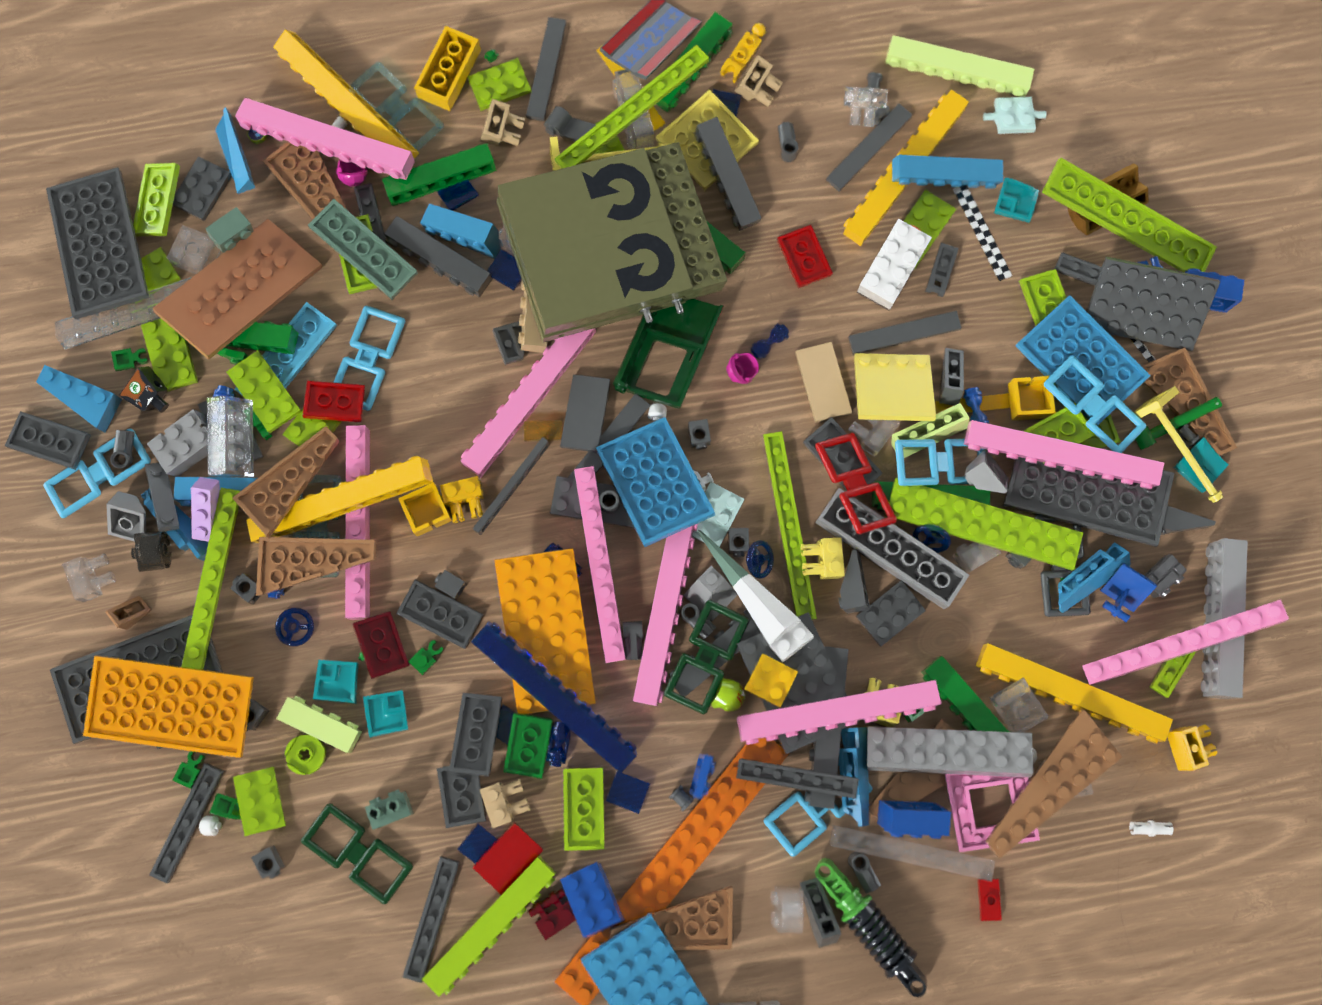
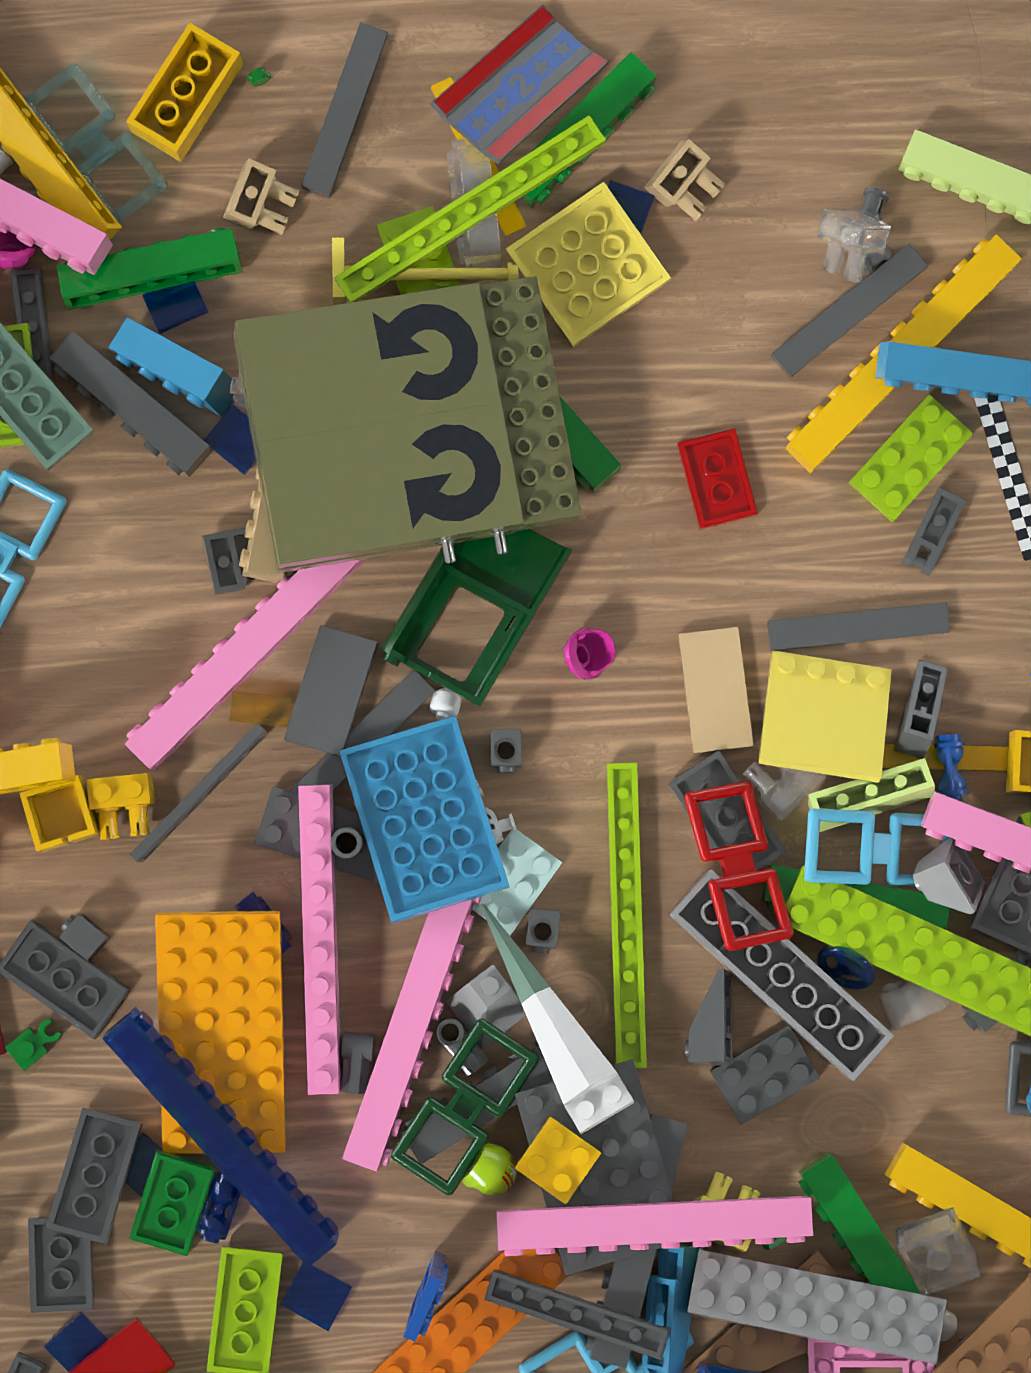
camera: 10 degrees right, 5 degrees up
(496, 802) = (113, 1286): tan brick -> none
(499, 83) = (265, 126): lime plate -> none
(563, 125) = (366, 214): dark grey door -> none
(681, 798) = (395, 1315): dark grey bush -> none
(728, 174) = (612, 329): dark grey brick -> none
(743, 52) = (669, 123): yellow plate -> none
(755, 559) = (567, 963): clear blue piece -> none
(763, 346) = (628, 620): clear blue piece -> none
(787, 141) = (717, 284): dark grey piece -> none
(830, 559) = (681, 976): light yellow brick -> none
(894, 264) = (856, 517): white piece -> none

